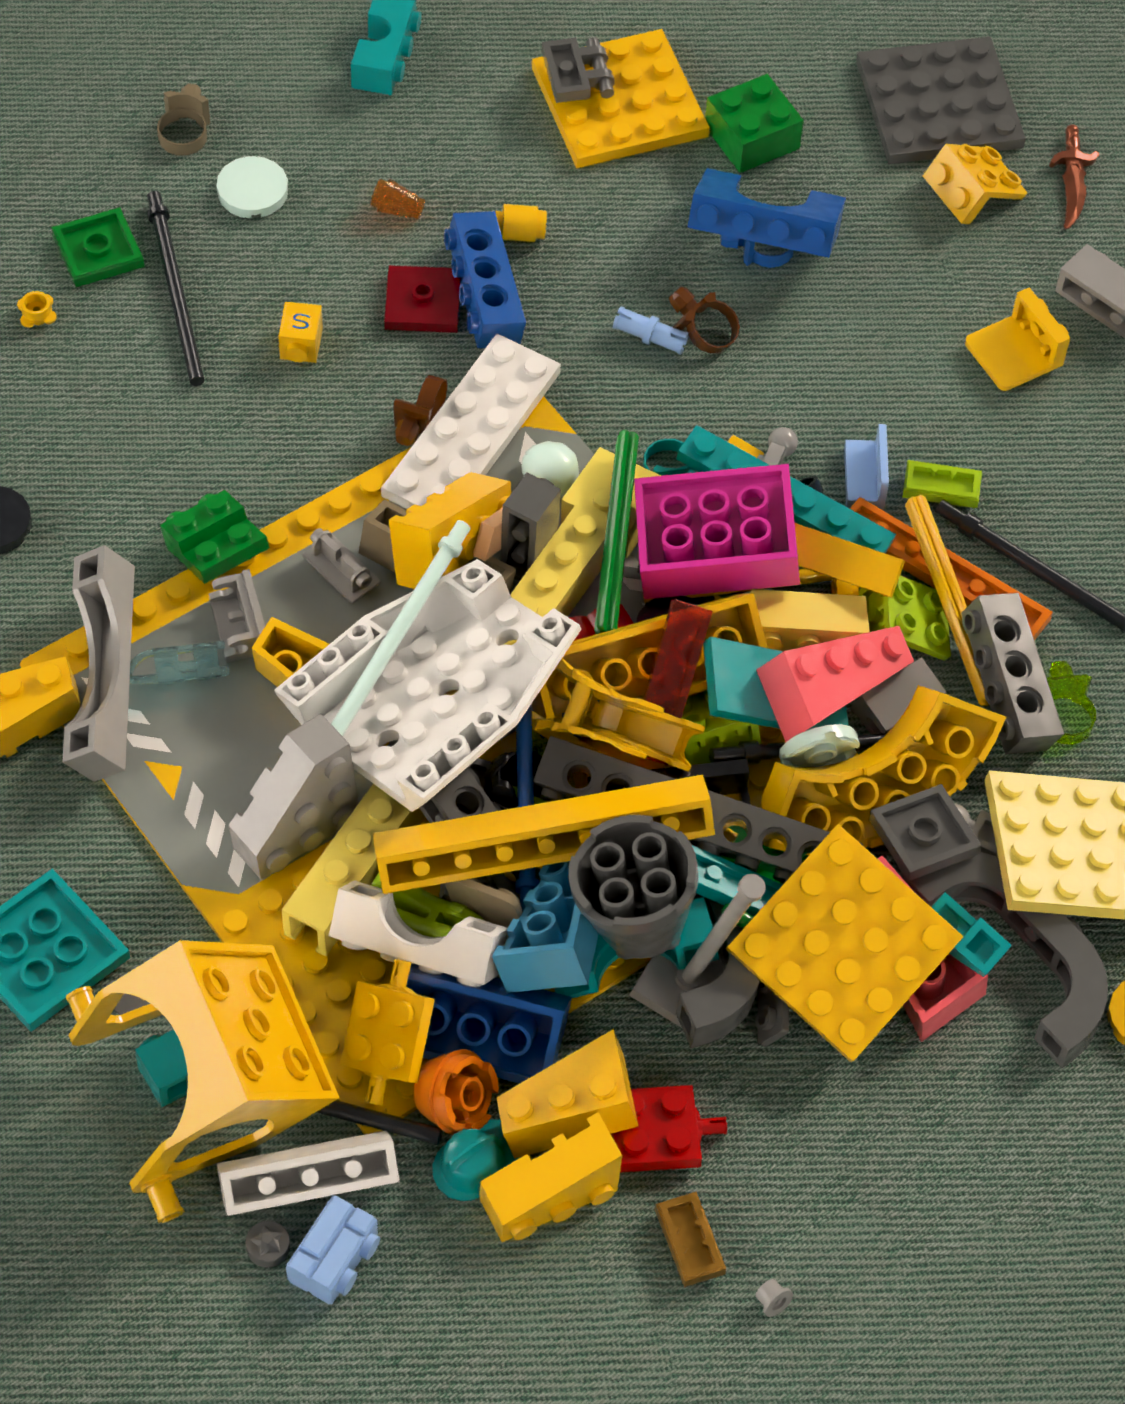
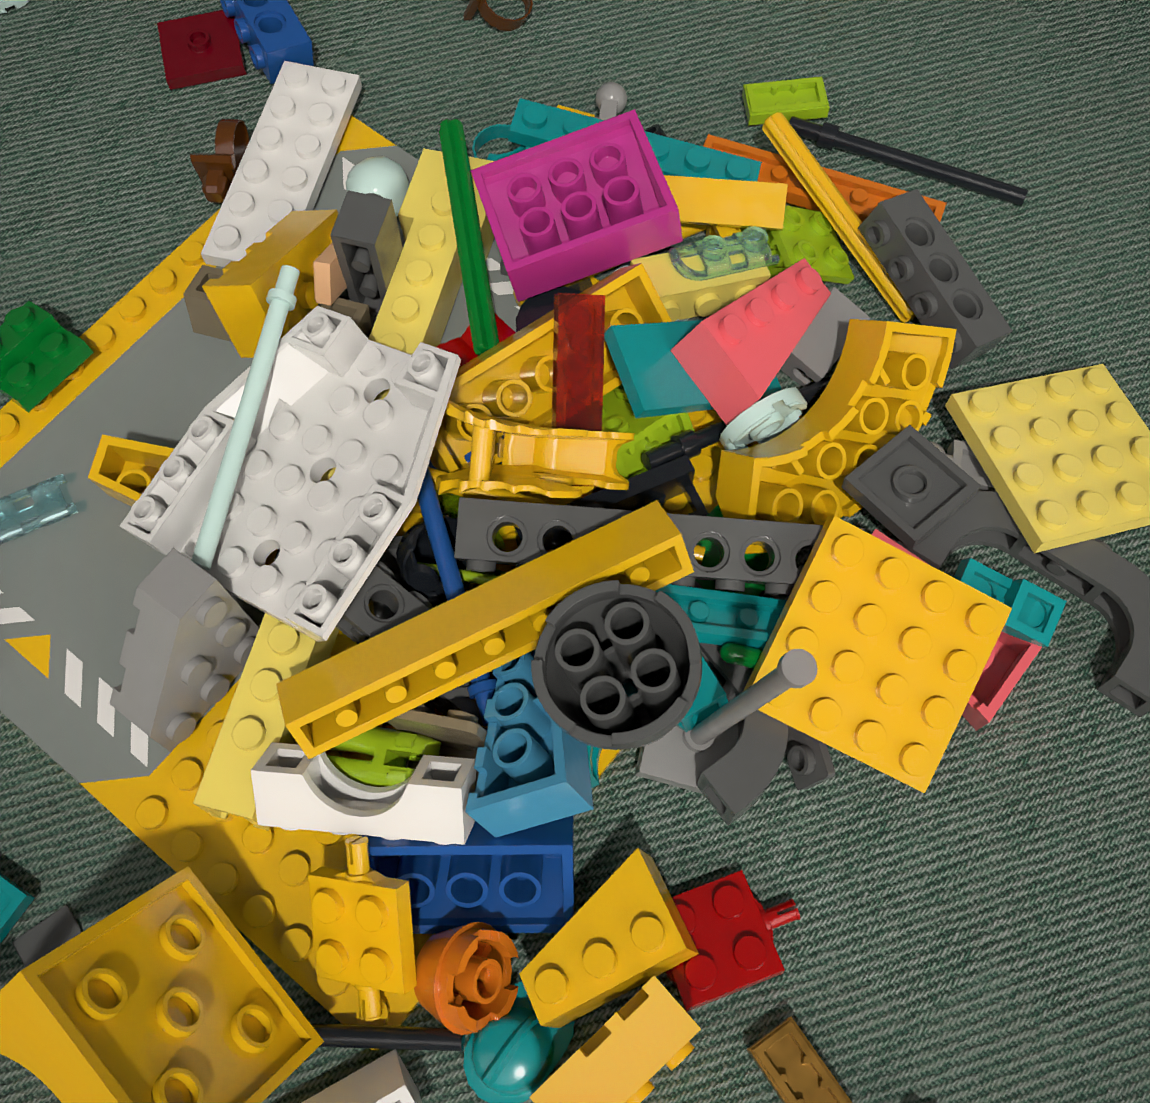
camera: 10 degrees left, 10 degrees up
(237, 614) = (70, 435): light grey hinge -> none
(300, 332) = (78, 111): yellow brick -> none
(340, 566) = (176, 352): light grey hinge -> none
(650, 330) = (442, 21): light blue pin -> none
(824, 604) = (716, 251): none -> clear light blue piece
(867, 469) = (706, 103): light blue panel -> none
(1074, 687) = (996, 279): clear neon green piece -> none

